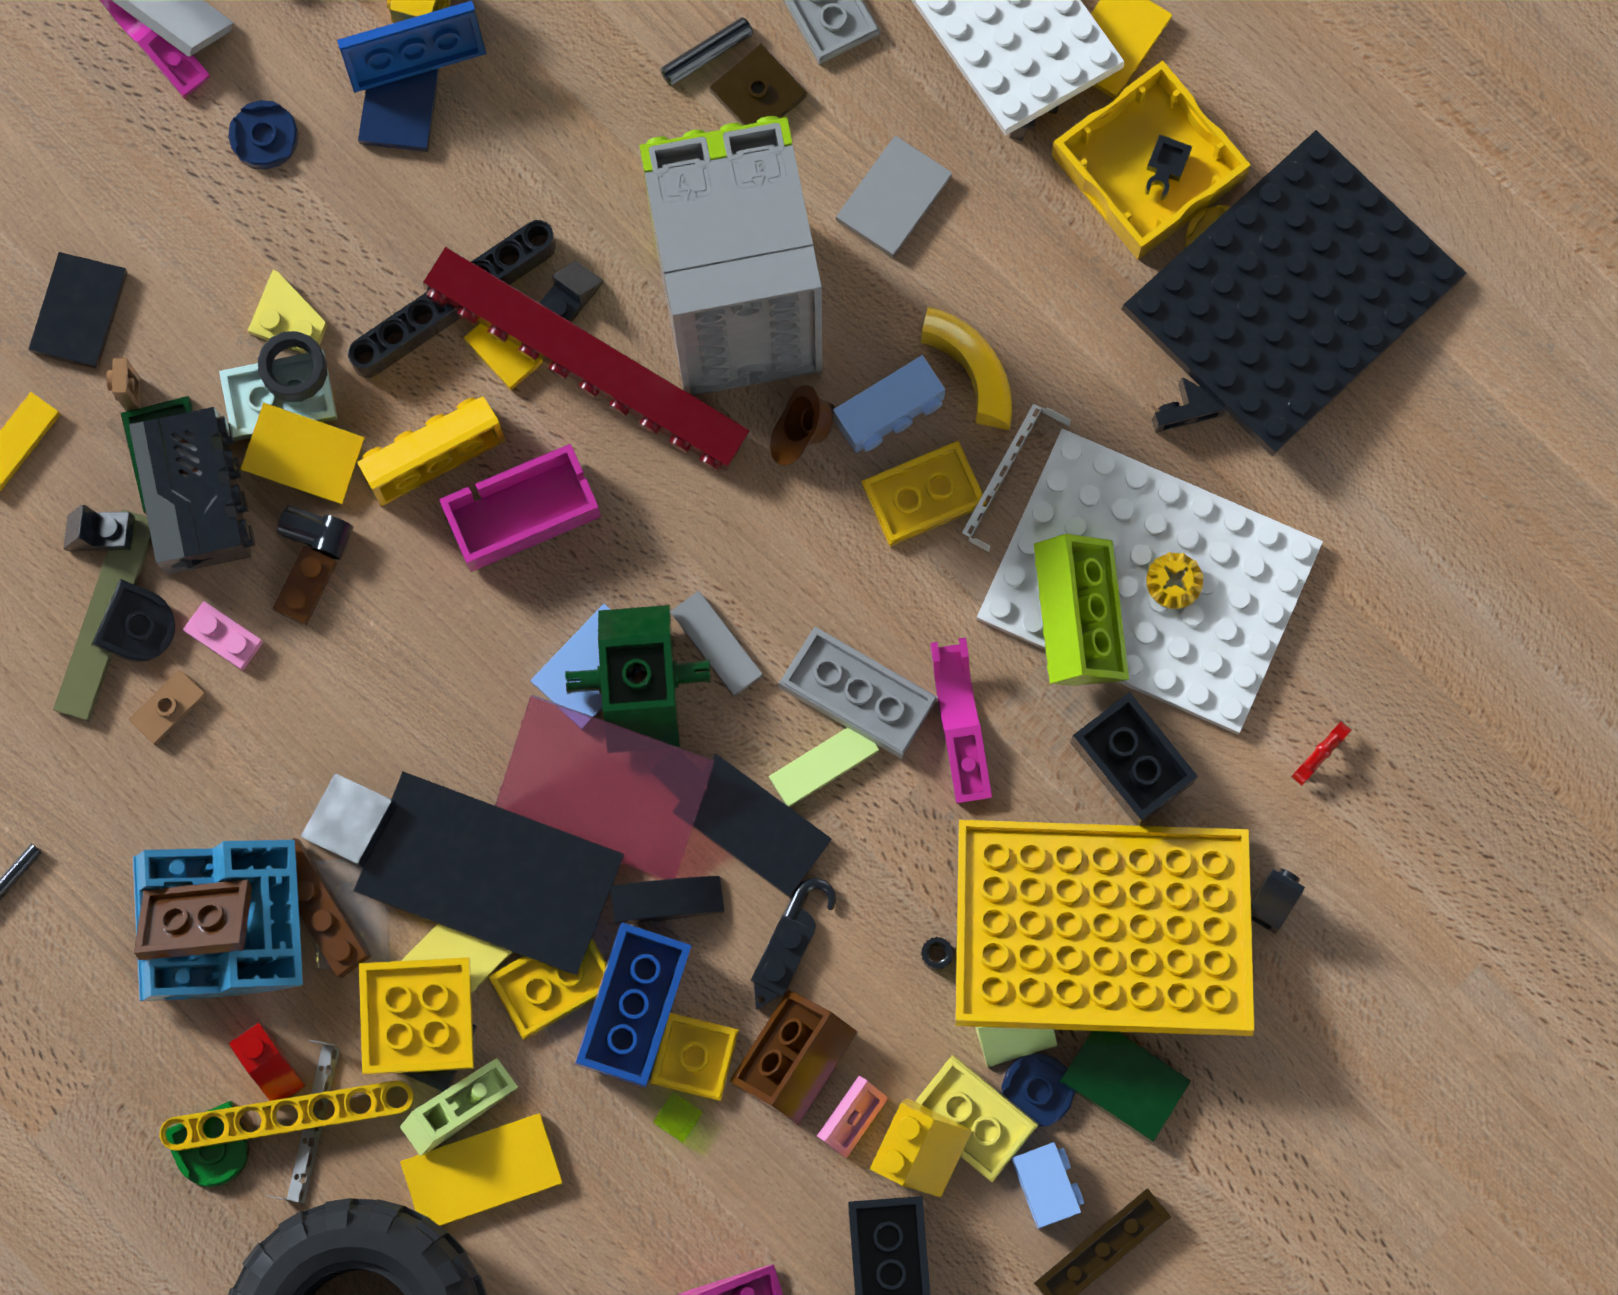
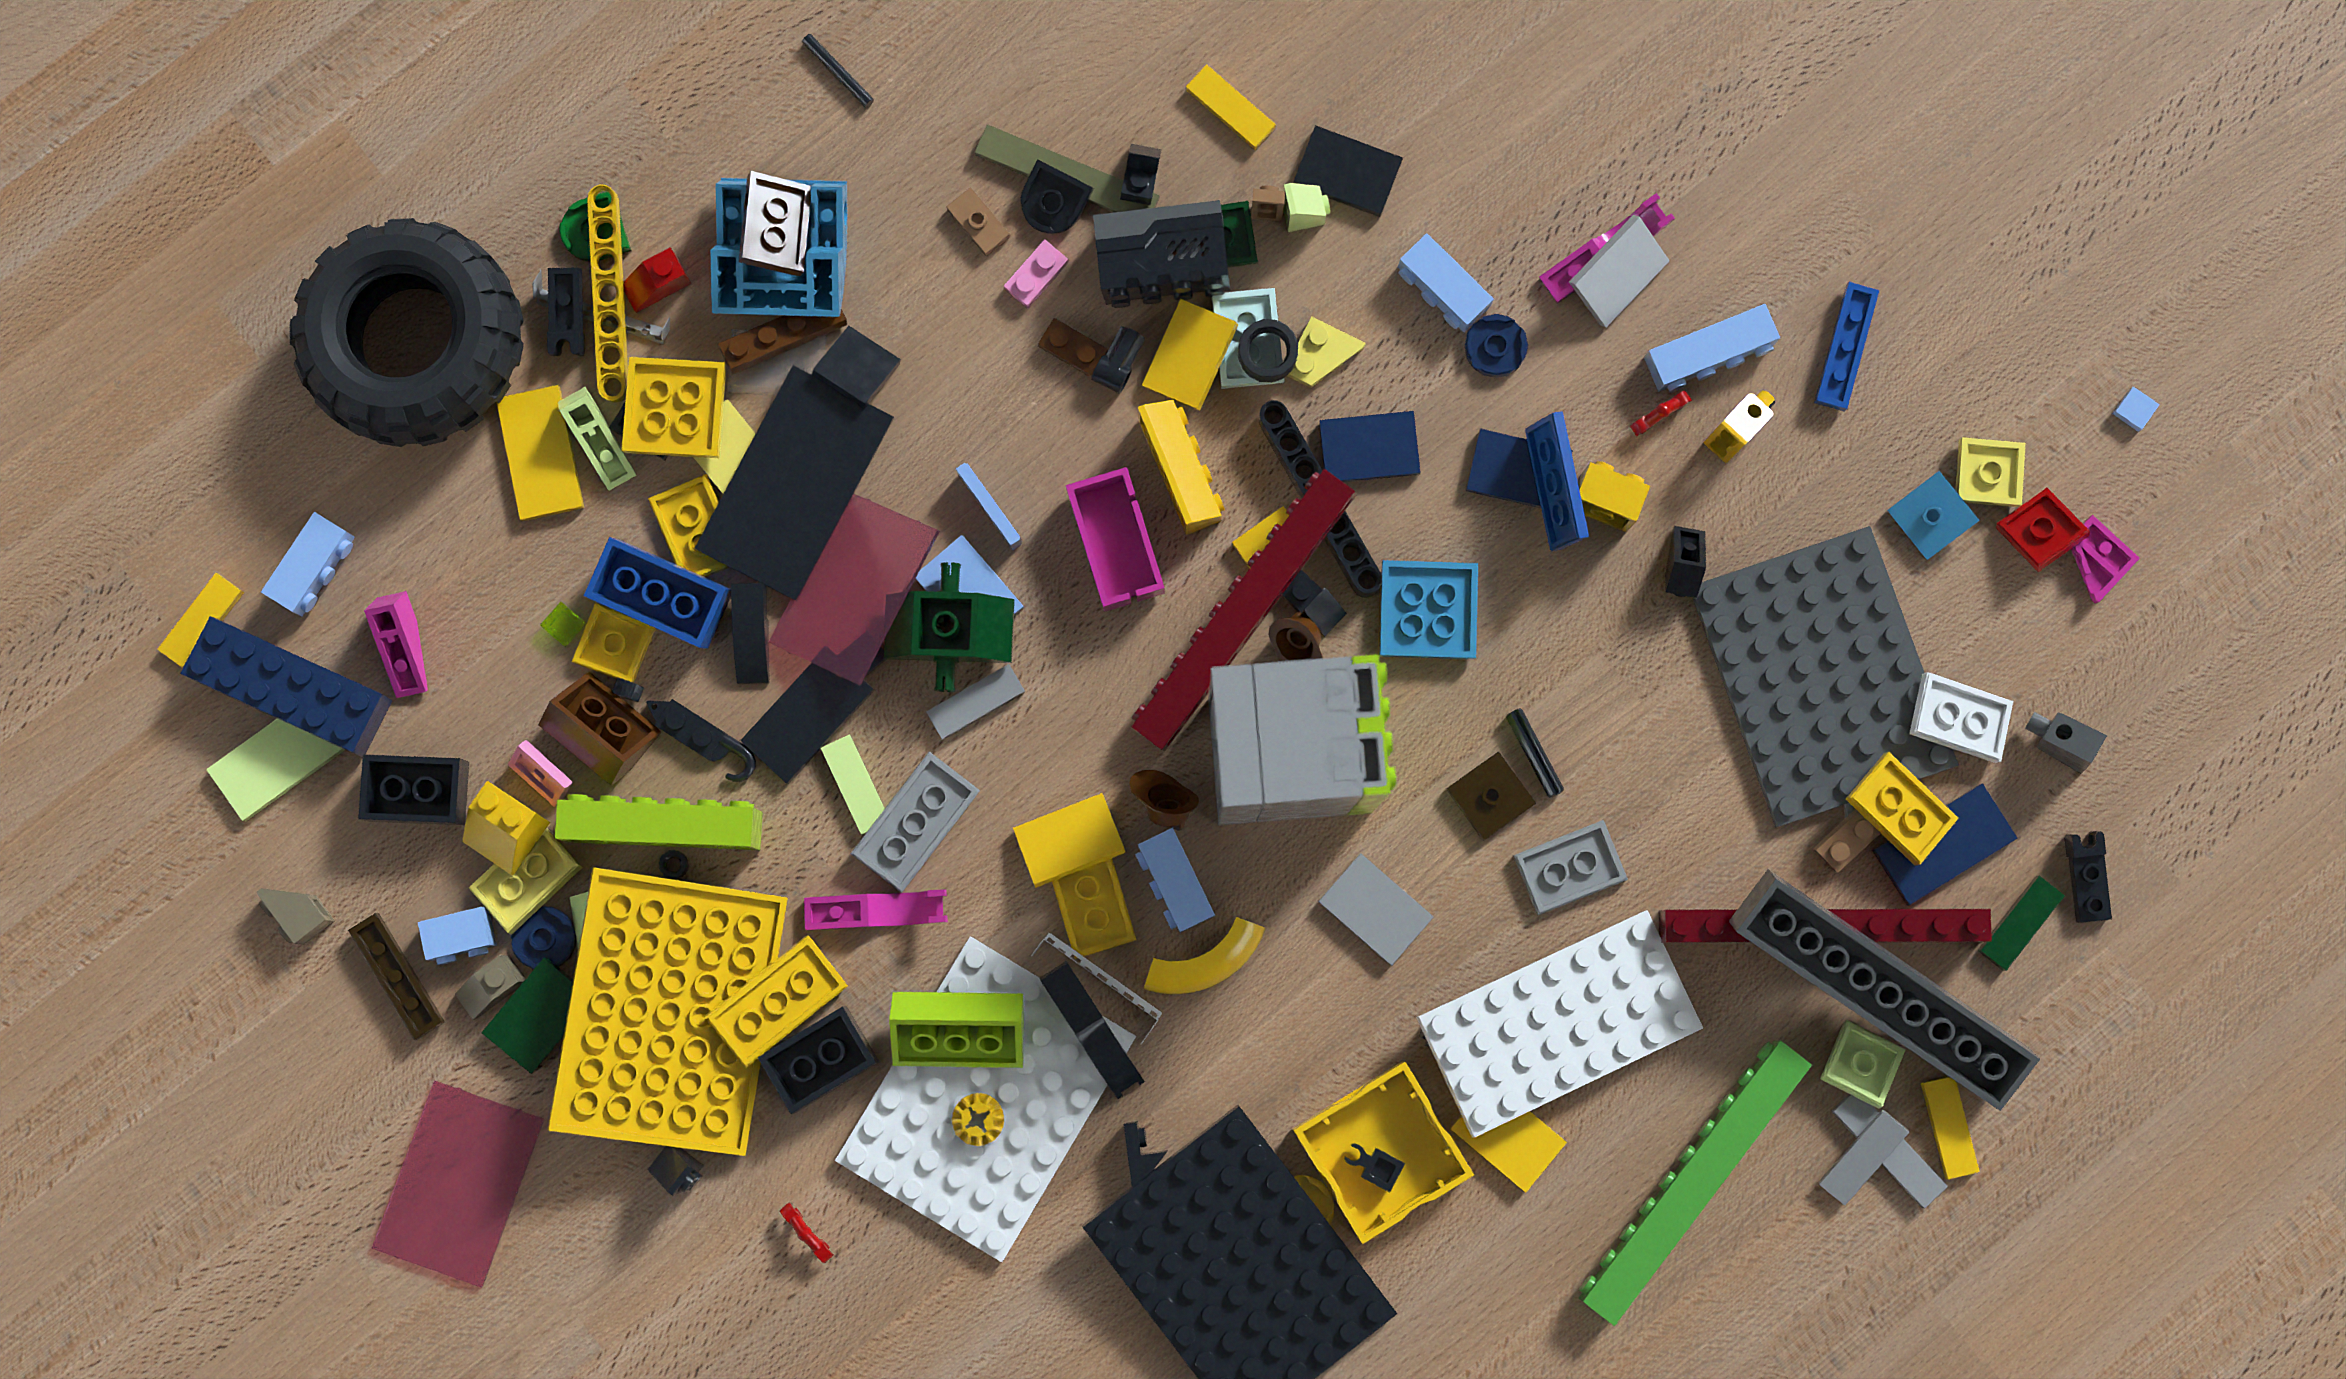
camera: 95 degrees right, 5 degrees up
(125, 341) = (1304, 206): none -> yellowish green slope
(199, 192) = (1444, 283): none -> light blue brick
(309, 1162) = (565, 311): none -> black plate
(387, 253) = (1370, 446): none -> dark blue tile
(495, 652) = (989, 506): none -> light blue tile
(563, 173) = (1428, 609): none -> dark azure plate
(621, 302) = (1295, 638): none -> reddish brown piece
(746, 1030) = (628, 690): none -> black axle
(858, 522) = (1069, 840): none -> yellow tile
(896, 967) = (655, 824): none -> lime brick
(1059, 472) = (1091, 1029): none -> black piece
(1075, 815) = (776, 1001): none -> yellow tile
(1101, 1141) = (490, 986): none -> dark tan slope
(1323, 1149) = (458, 1183): none -> clear pink piece

